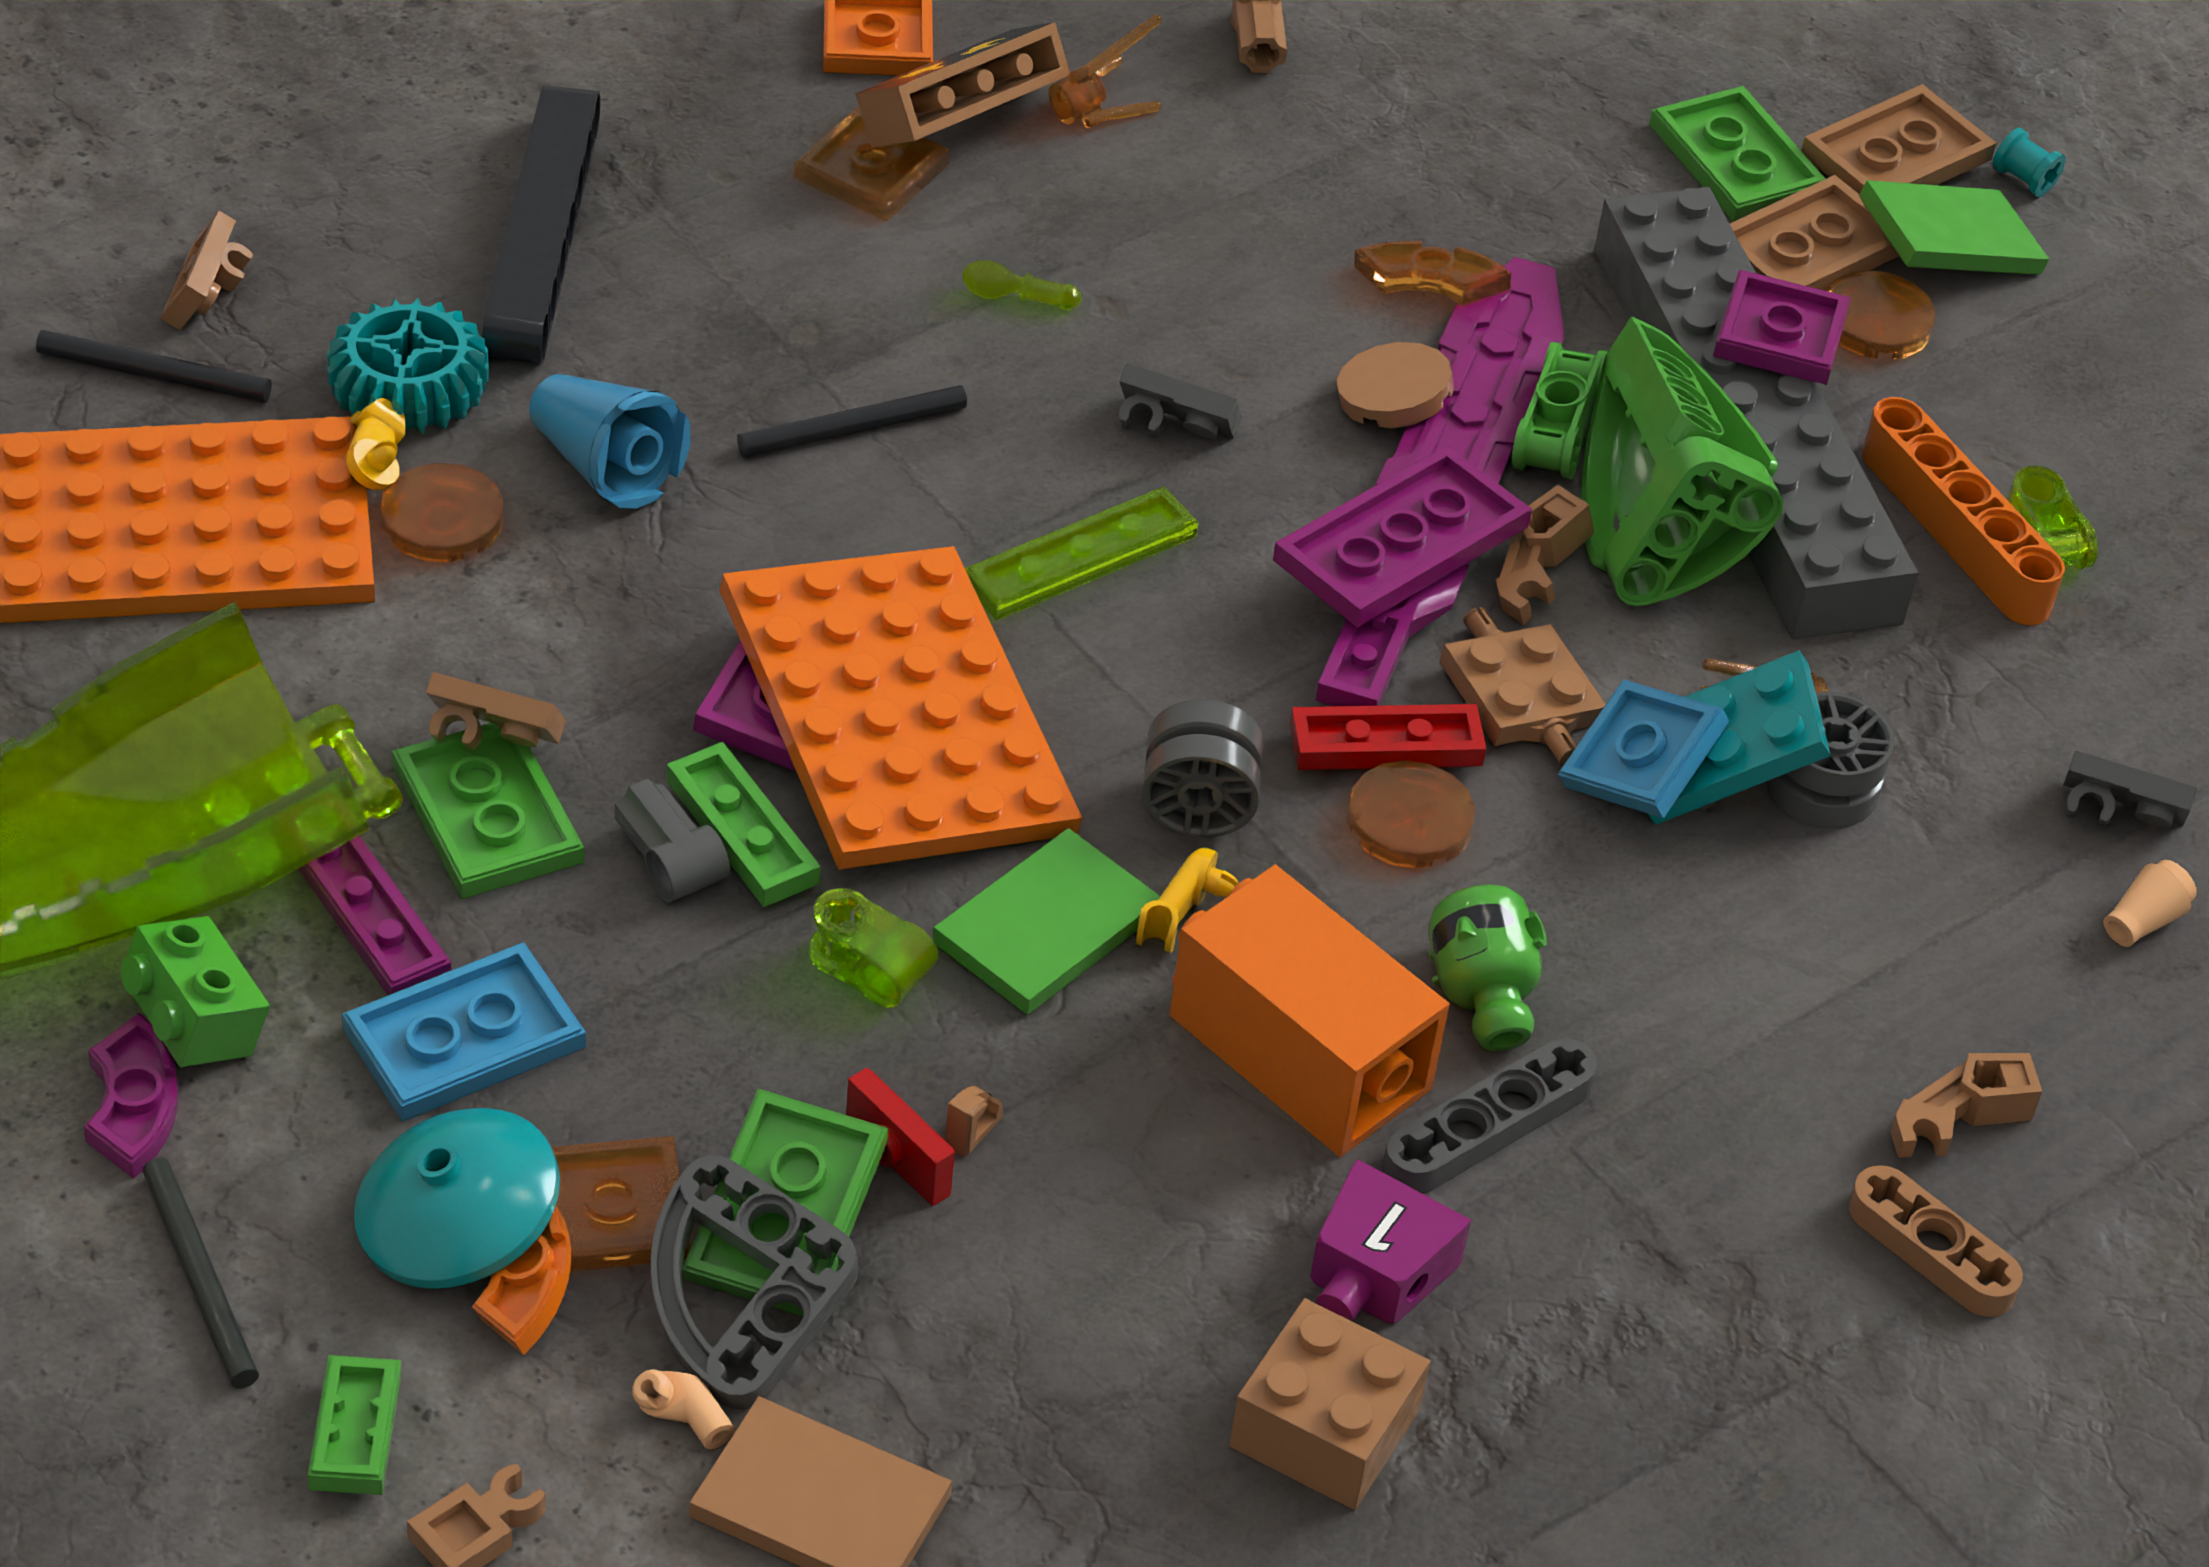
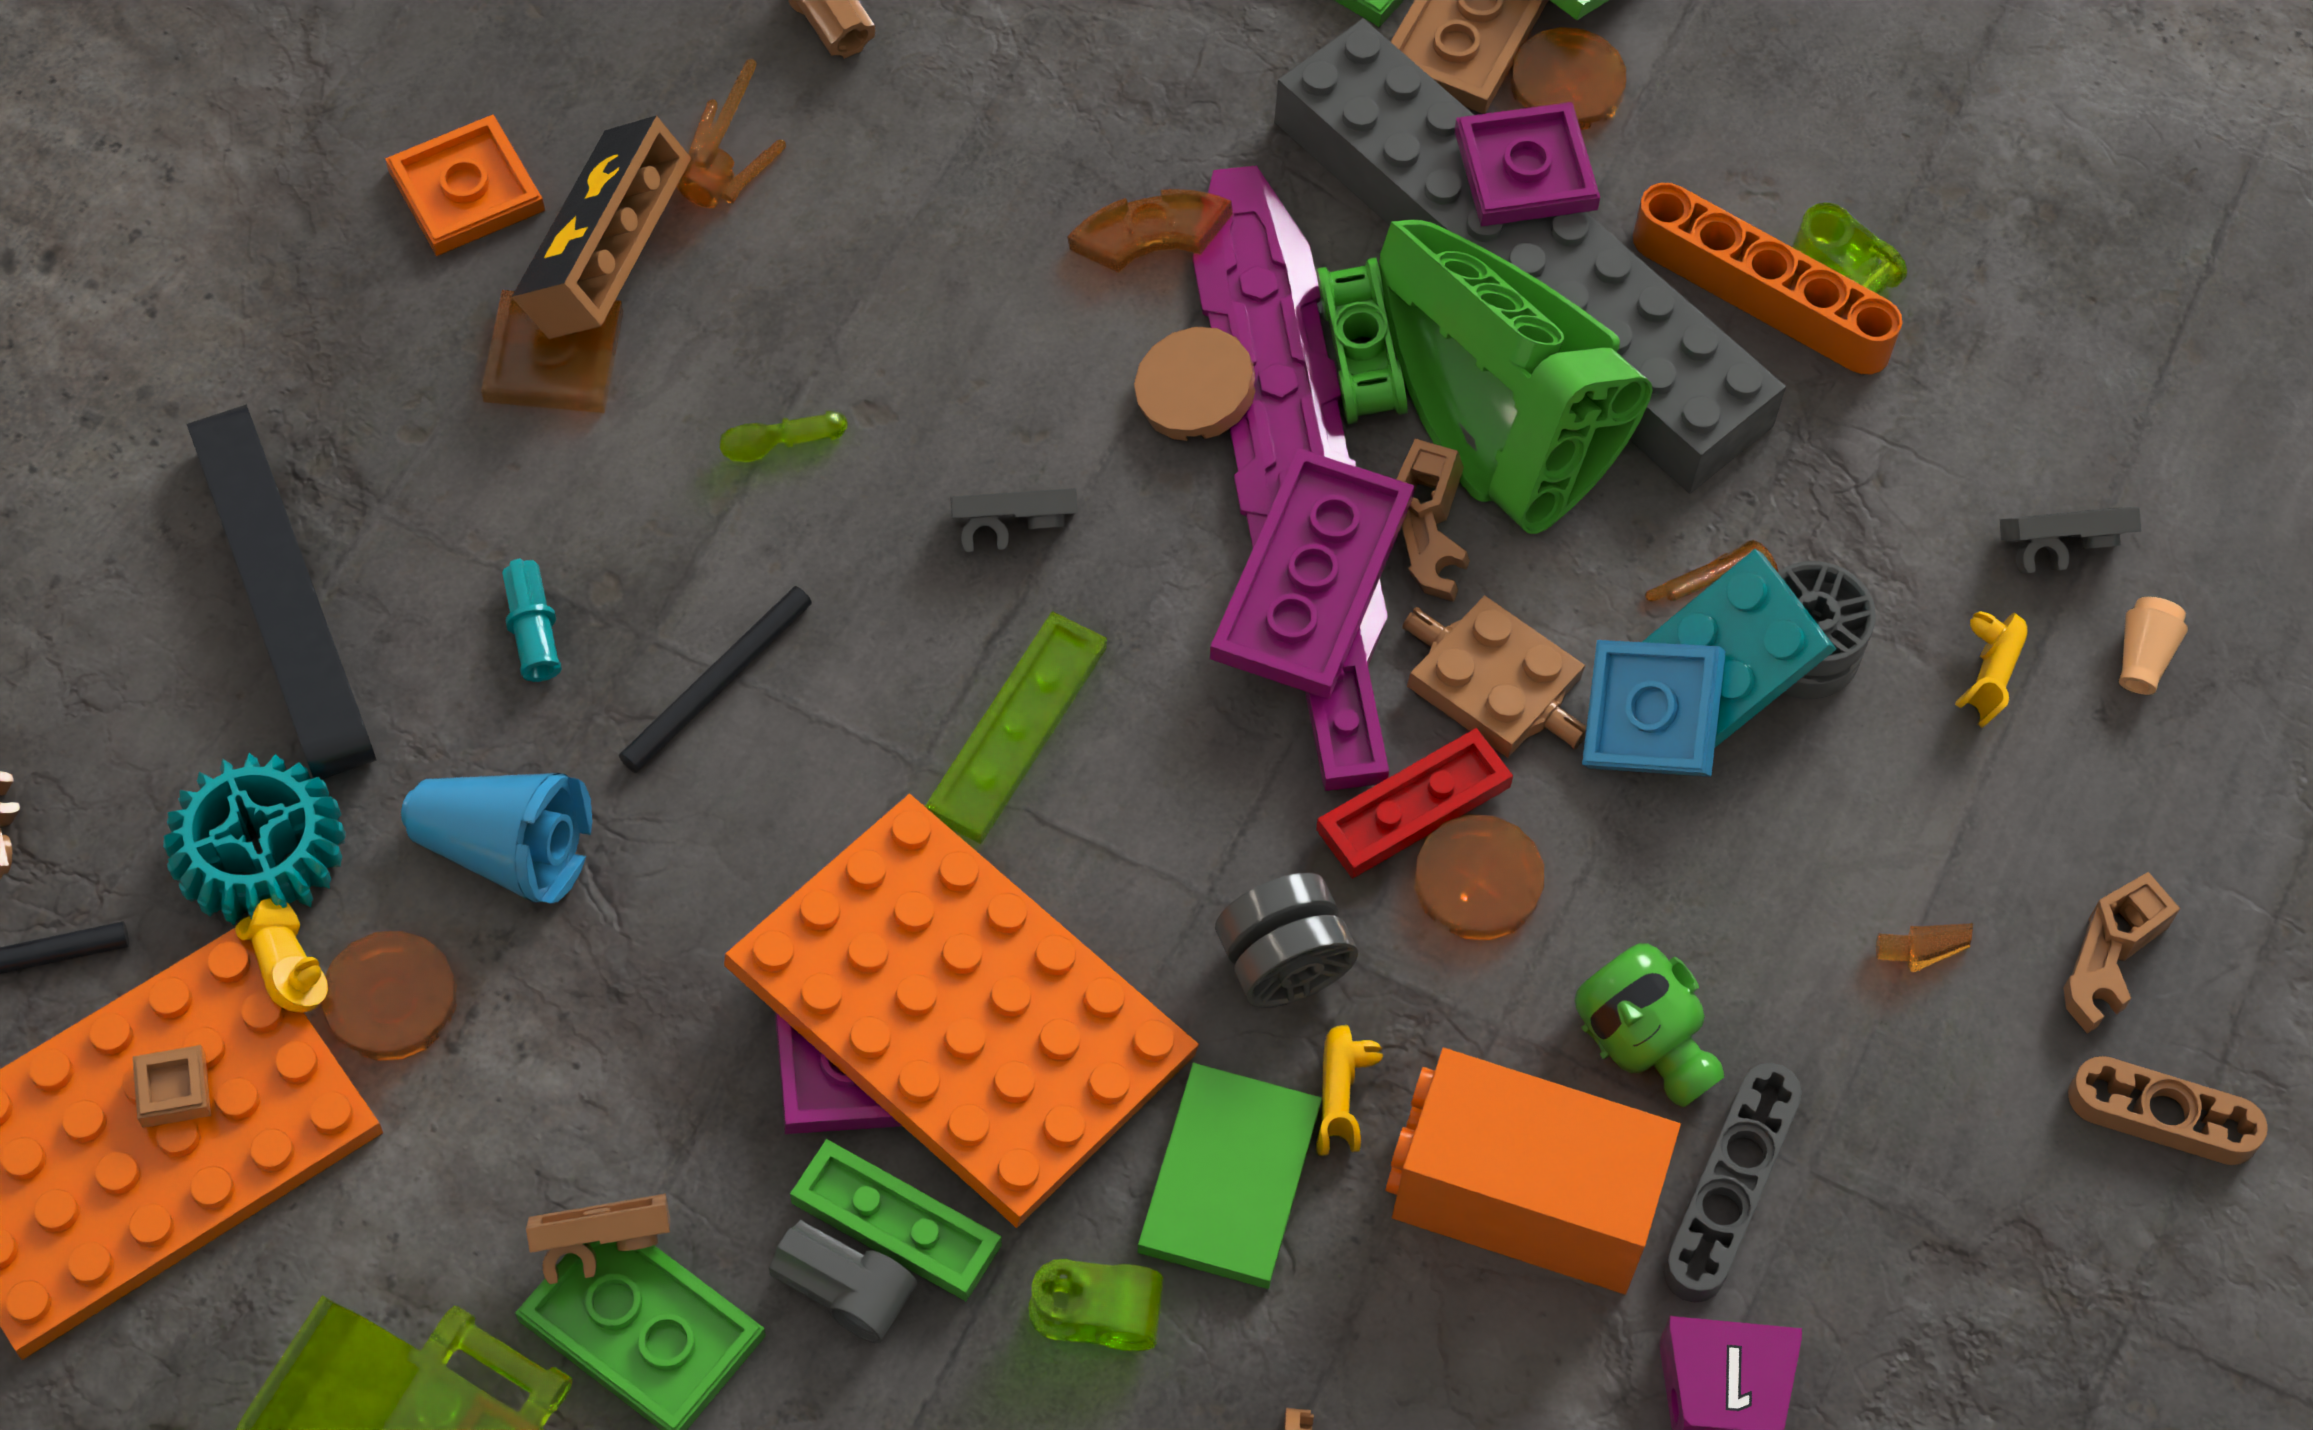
camera: 25 degrees left, 15 degrees up
(229, 484) = (171, 1086): none -> medium nougat tile
(727, 323) = (531, 621): none -> teal axle
(1786, 1029) = (1924, 944): none -> clear orange bar
(2005, 849) = (1999, 659): none -> yellow piece

